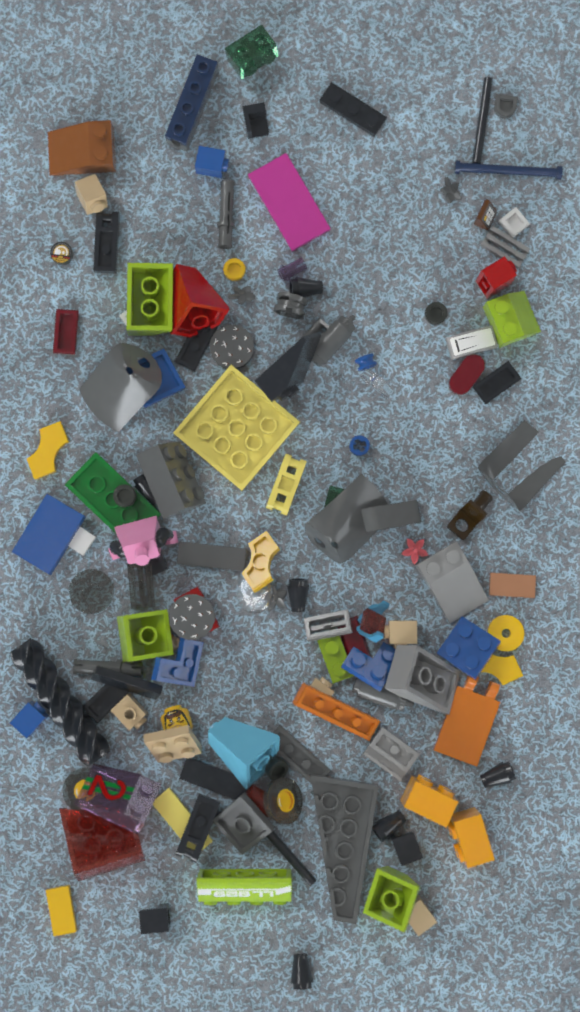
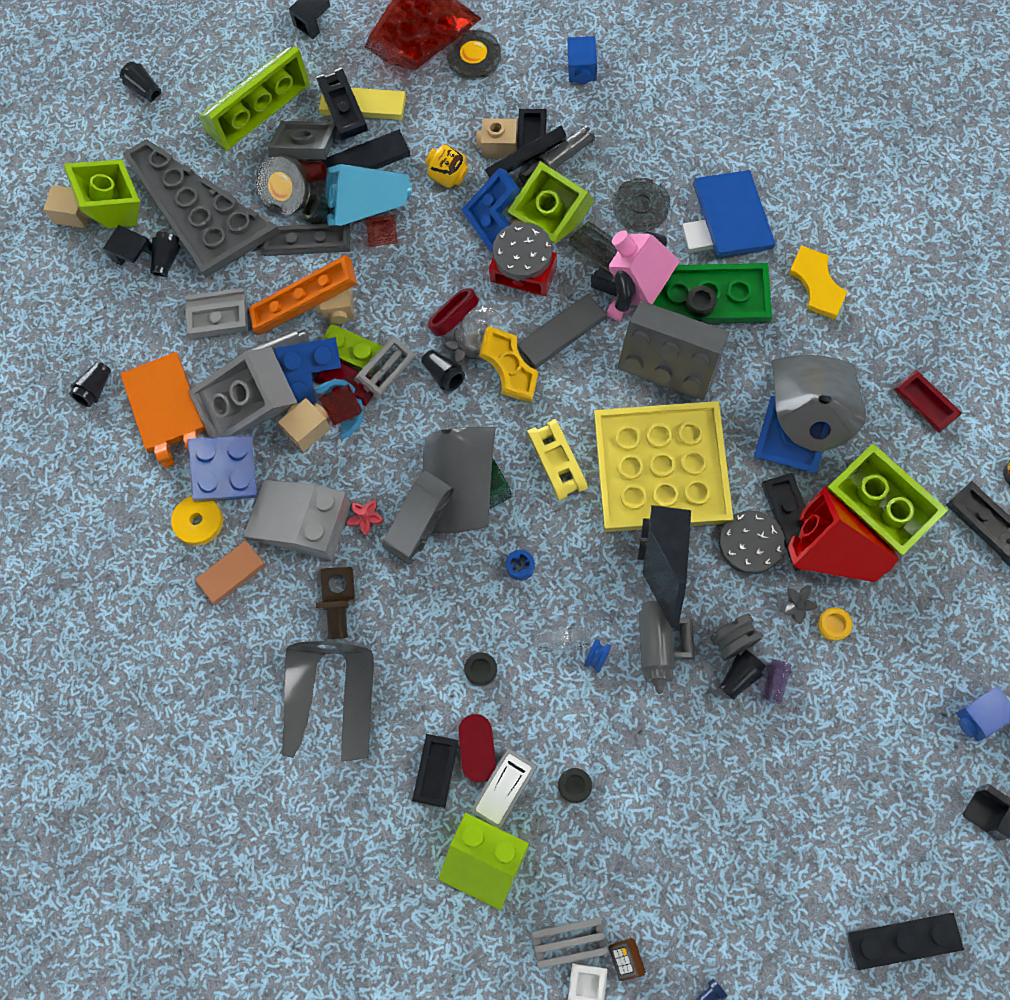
camera: 145 degrees right, 15 degrees down
(64, 708) = (568, 92): black piece -> none
(118, 796) = (438, 61): clear purple slope -> none
(173, 744) = (431, 137): tan plate -> none
(225, 221) = (937, 704): dark grey pin -> none
(251, 716) = (382, 230): none -> clear red tile
(260, 623) = (453, 312): none -> dark red tile
(289, 202) = (858, 756): dark pink tile -> none
(291, 858) = (231, 157): black bar -> none
(428, 800) = (139, 297): light orange brick -> none
(429, 411) = (480, 669): none -> pearl dark grey tile
(450, 191) = (696, 949): dark grey plant -> none
(471, 838) = (70, 300): light orange brick -> none
(496, 277) = (543, 886): red brick -> none
(503, 668) = (169, 485): yellow tile -> none

